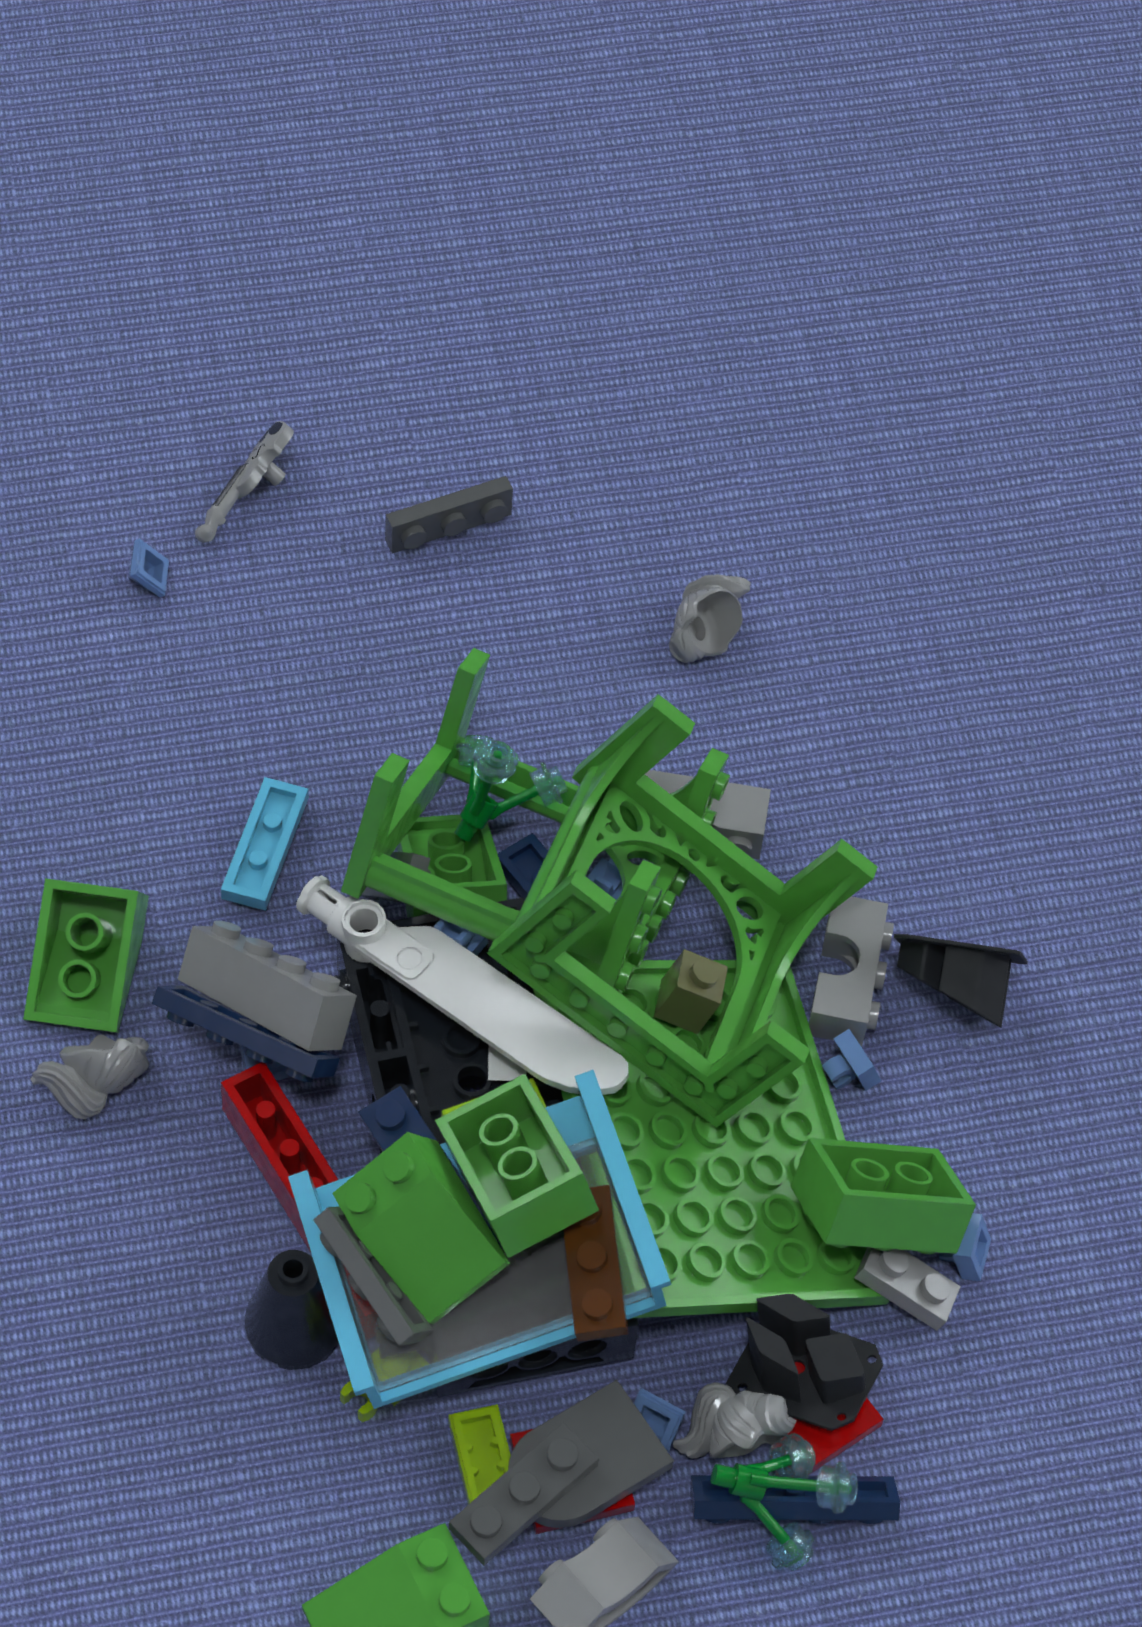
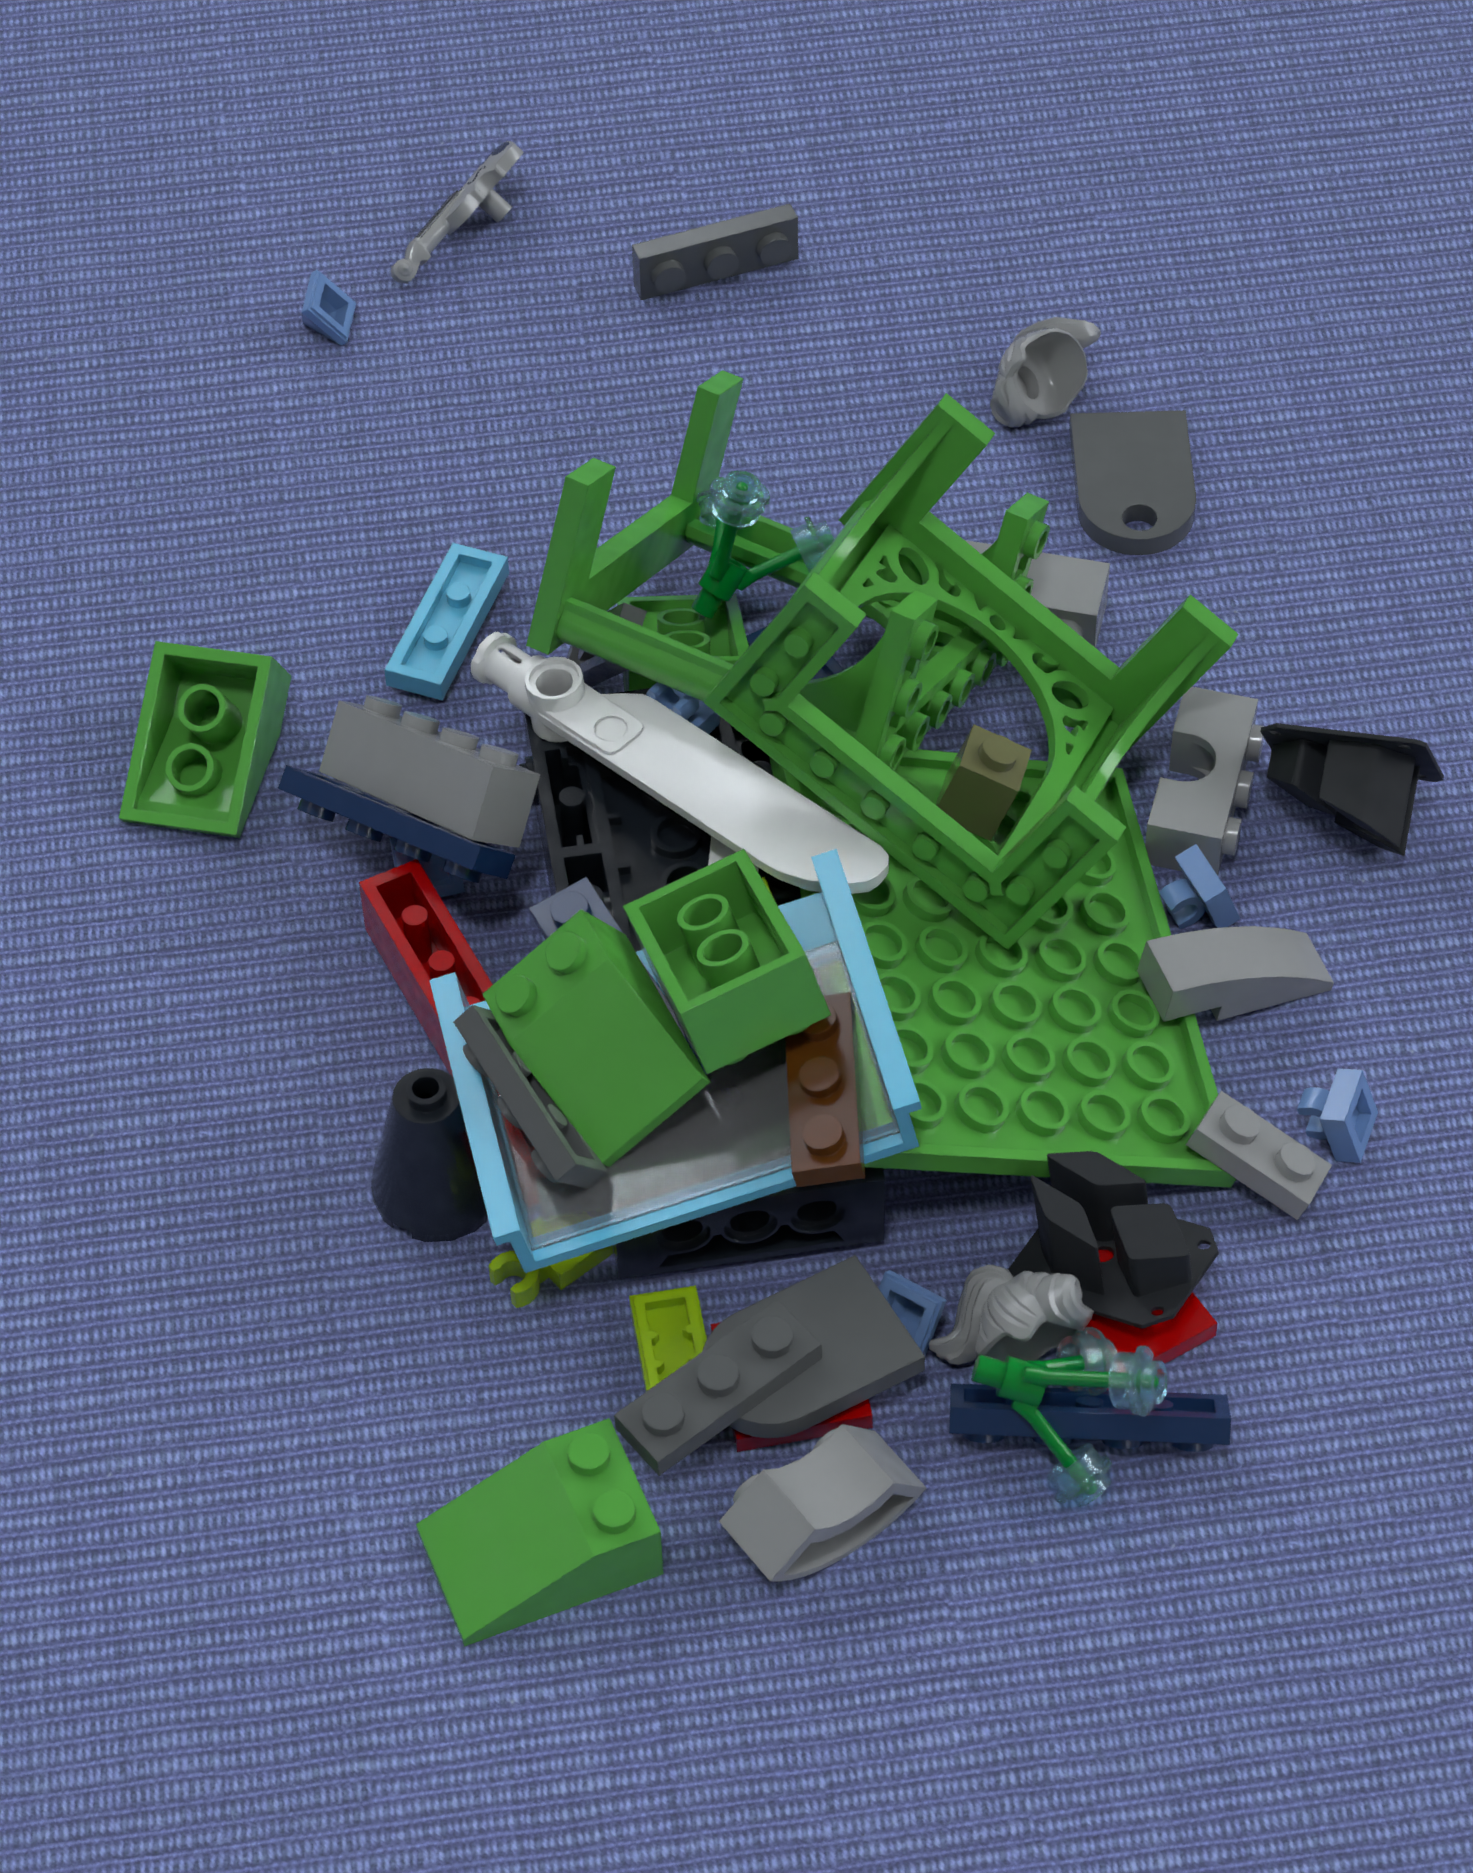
camera: 10 degrees right, 5 degrees down
(92, 1073) = (199, 878): light grey hair -> none
(780, 700) = (1133, 471): none -> dark grey tile
(882, 1196) = (1226, 1039): bright green brick -> none
(891, 1120) = (1230, 970): none -> light grey slope

